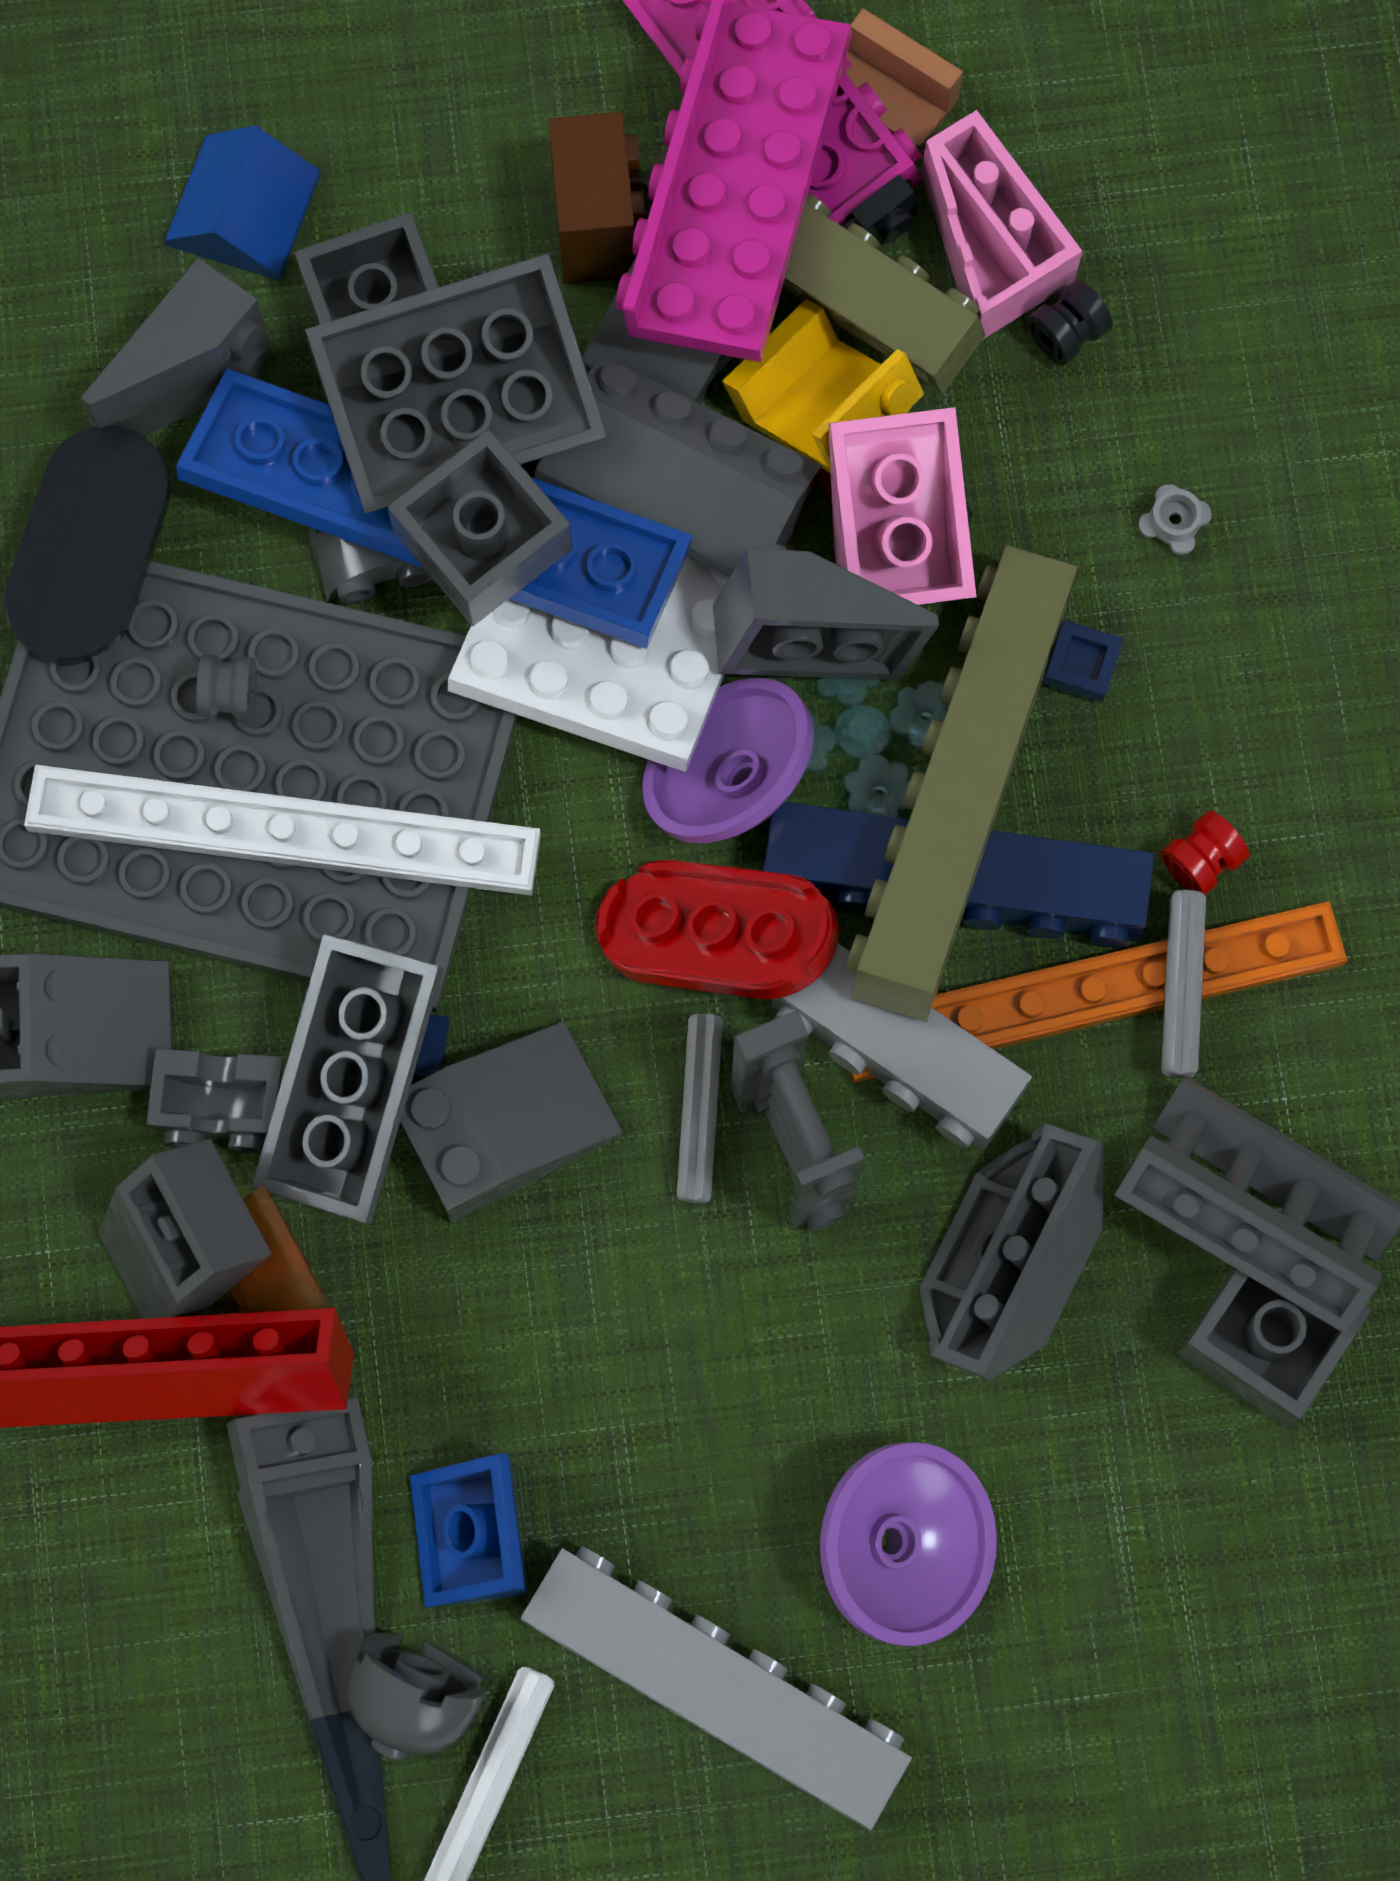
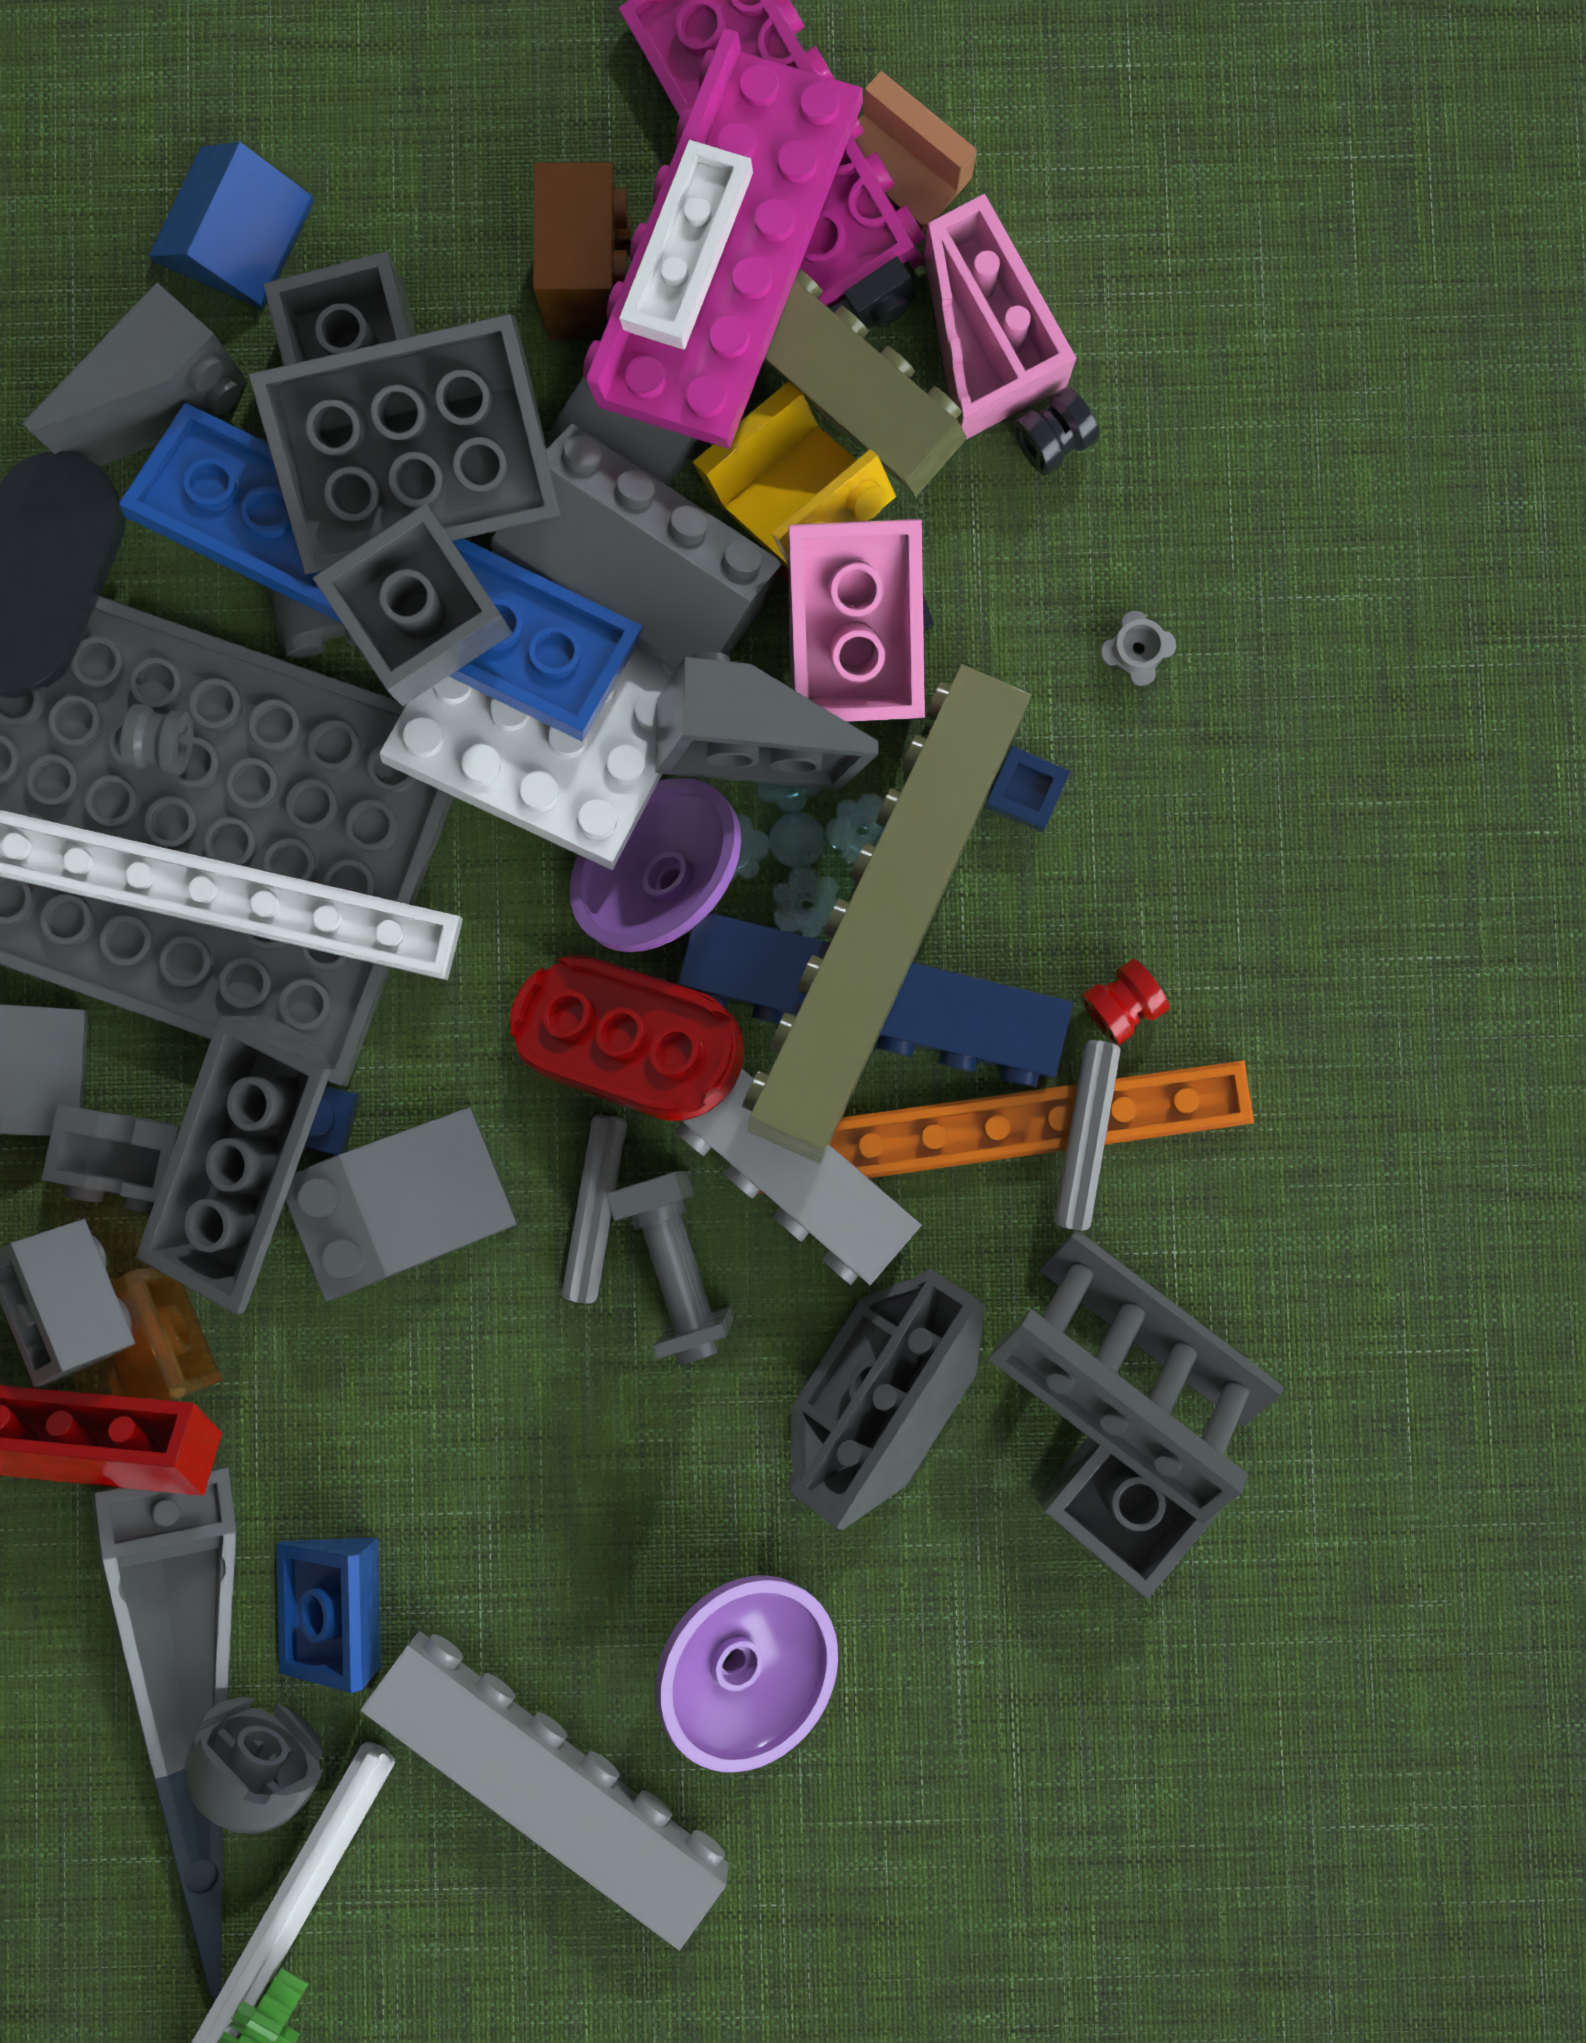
camera: 10 degrees right, 10 degrees up
(704, 178) = (686, 244): none -> white plate

